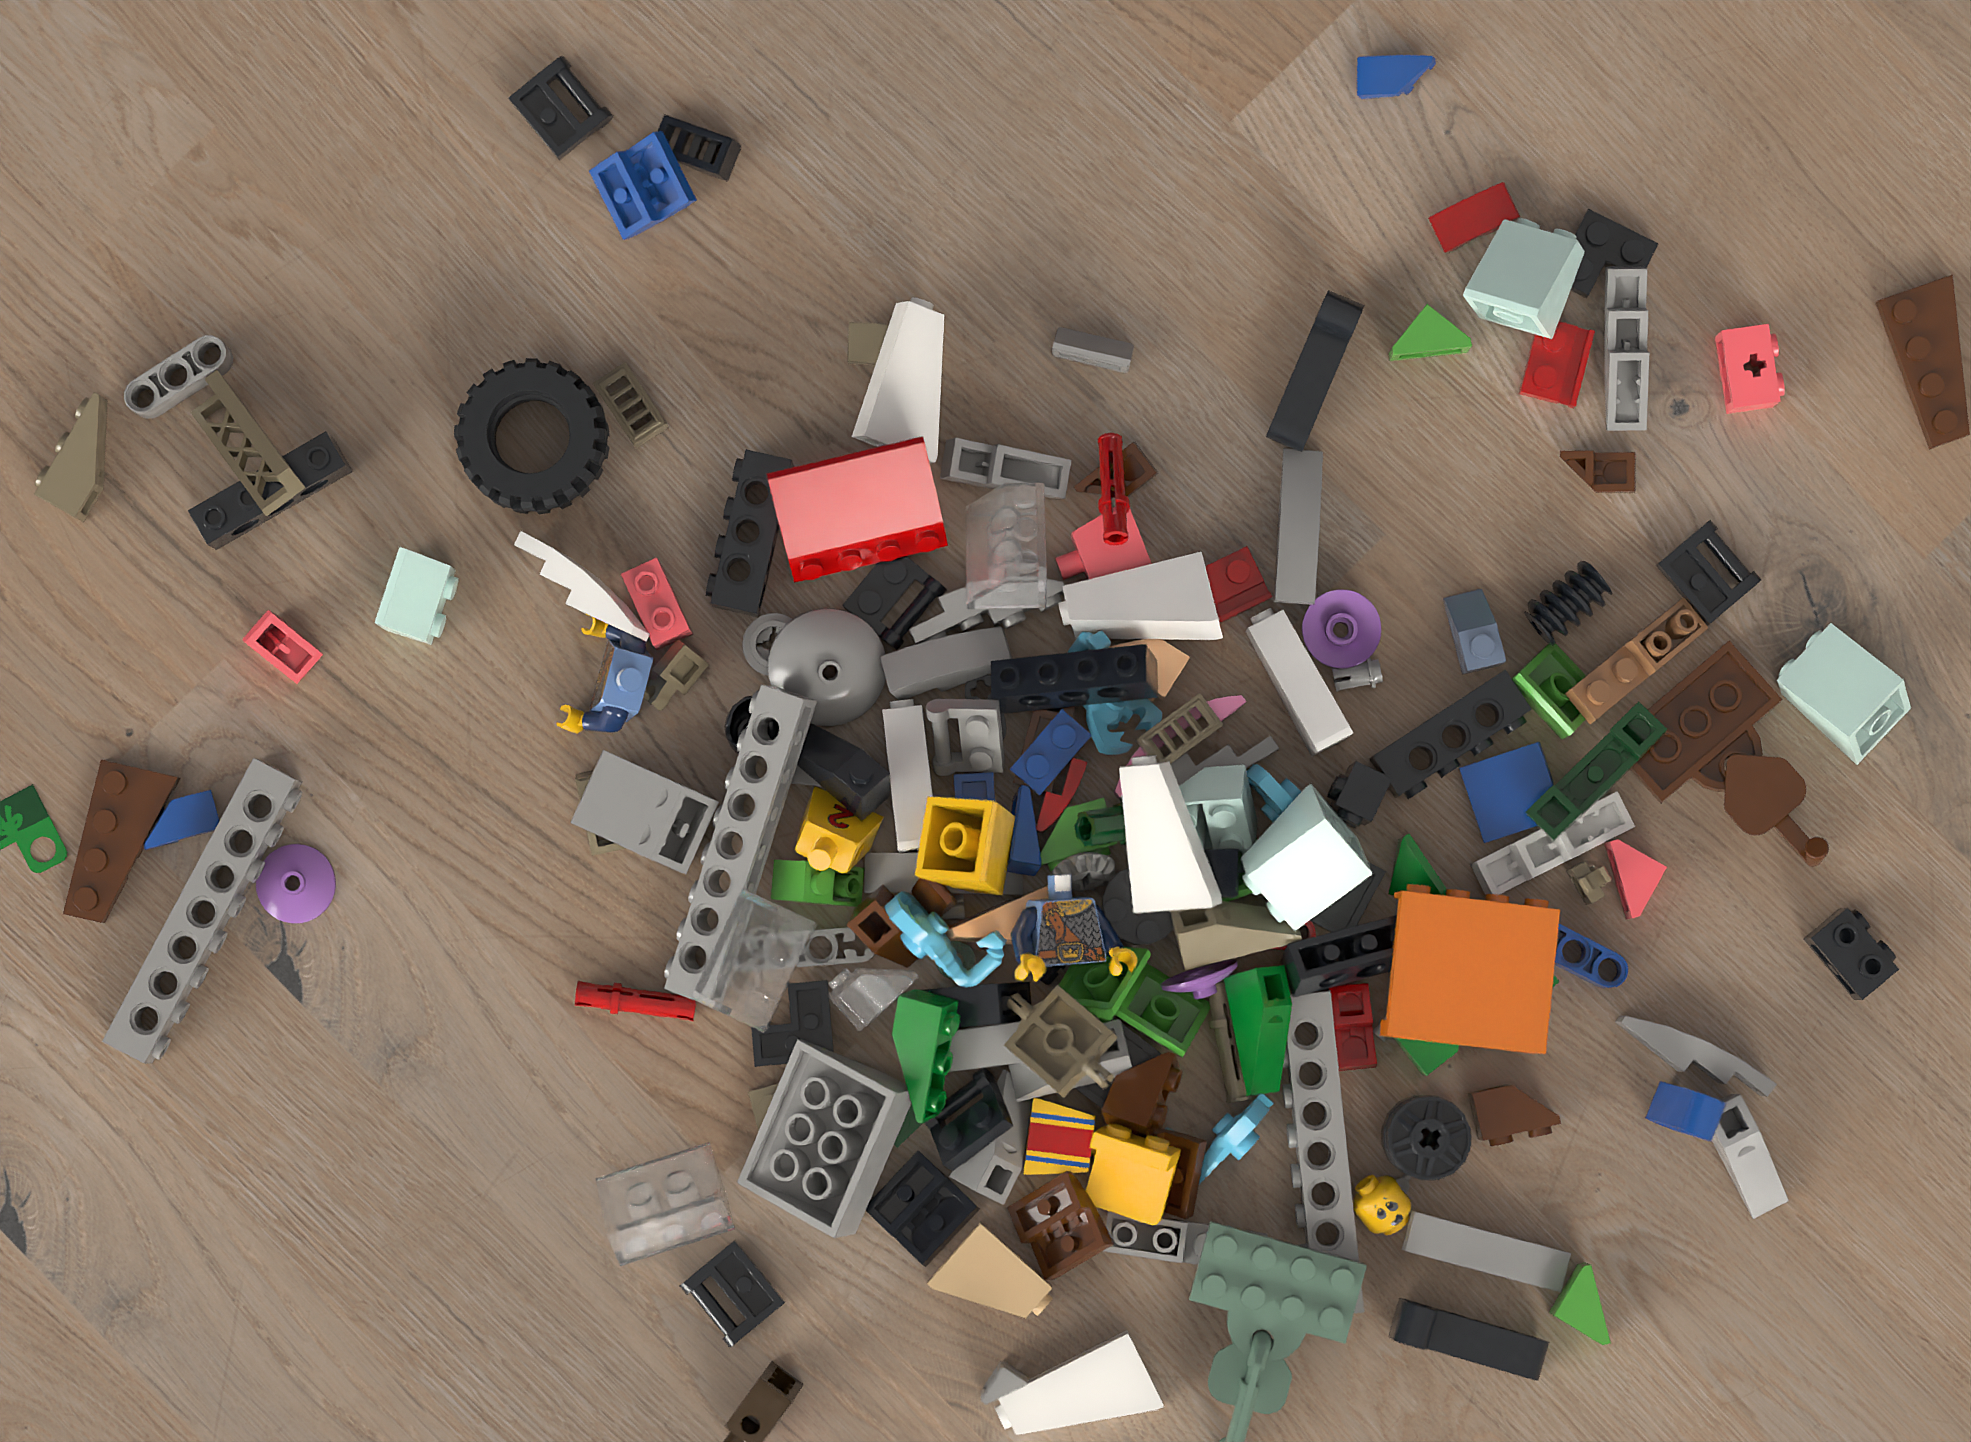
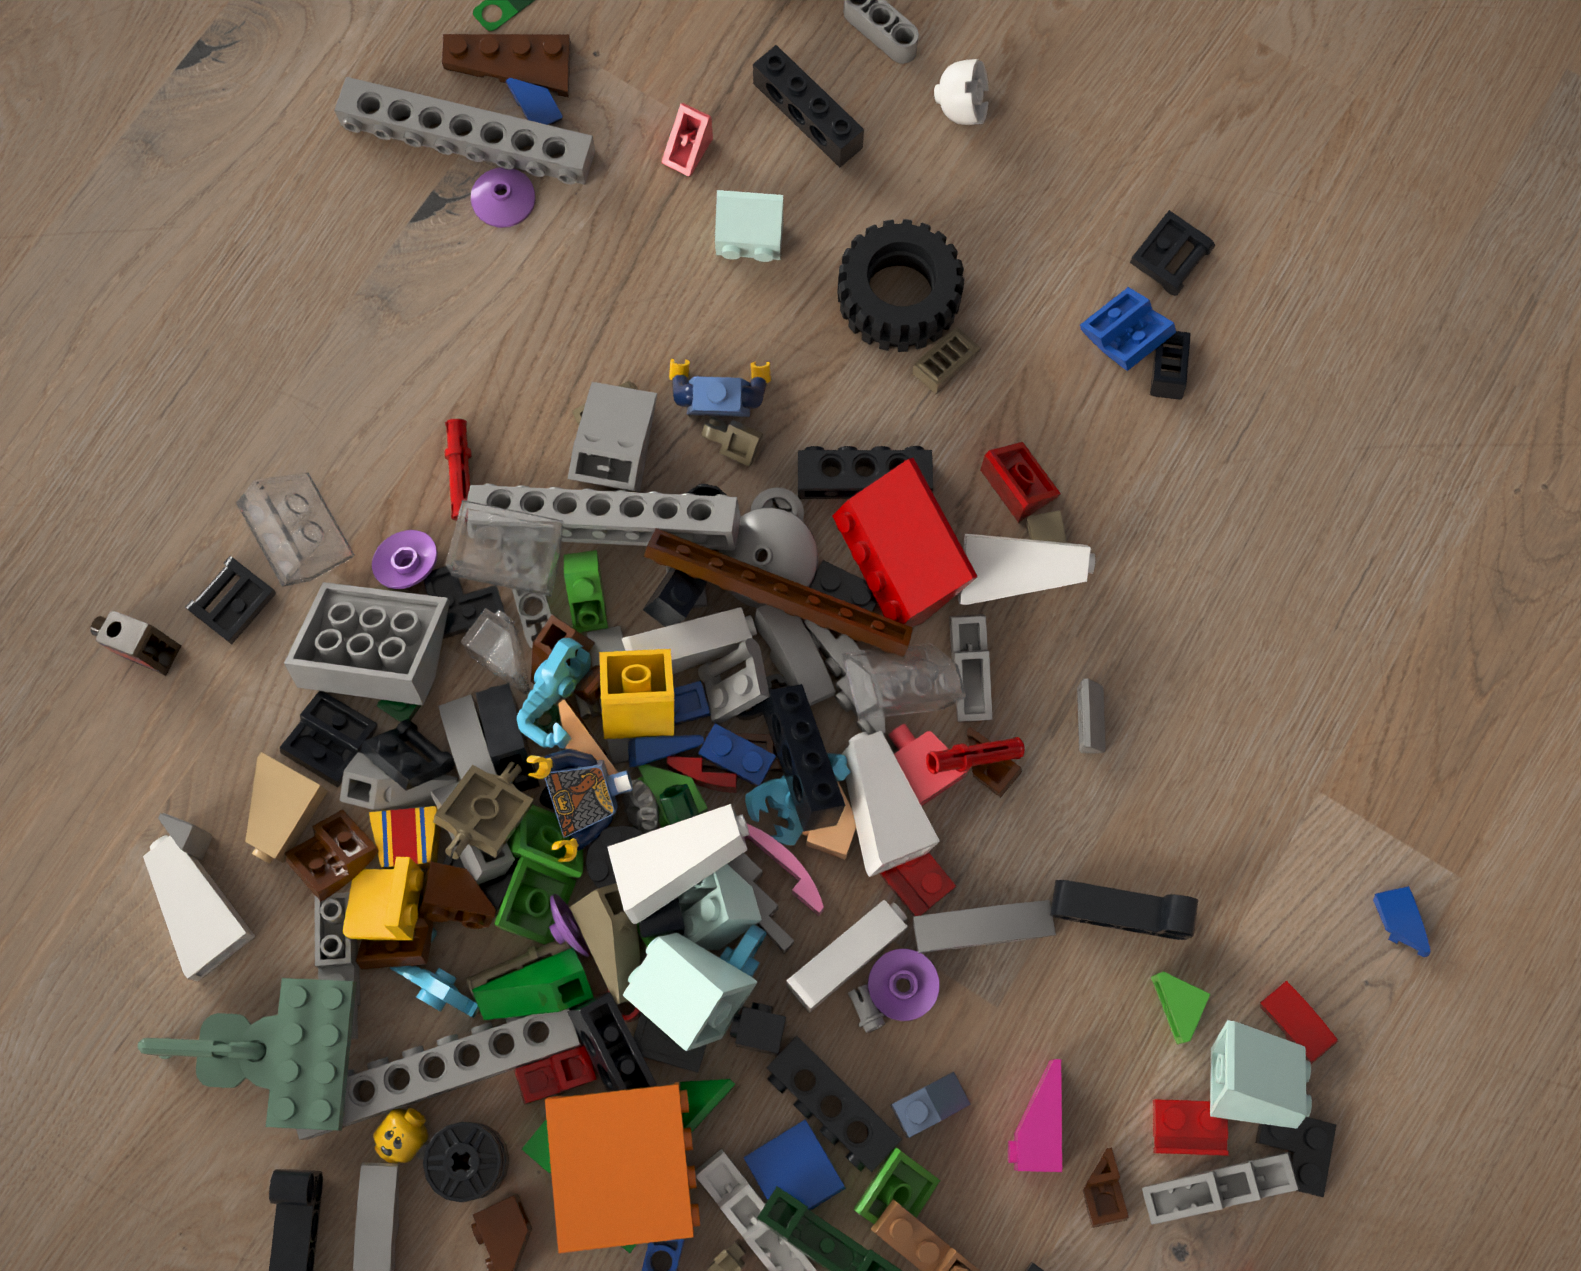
camera: 75 degrees right, 10 degrees down
(253, 436) = (840, 81): dark tan fence -> none
(299, 301) = (963, 91): none -> white cylinder
(587, 591) = (785, 351): white slope -> none
(656, 603) = (788, 412): coral brick -> none
(717, 1086) = (404, 559): none -> medium lavender dish
(798, 357) = (1018, 479): none -> red slope
(834, 835) = (625, 590): yellow torso -> none
(881, 663) = (779, 592): none -> reddish brown plate
(923, 1043) = (464, 699): green slope -> none
(1148, 746) = (775, 839): dark tan slope -> none
(1524, 521) = (1039, 1132): none -> dark pink slope
(1567, 601) = (977, 1184): black piece -> none

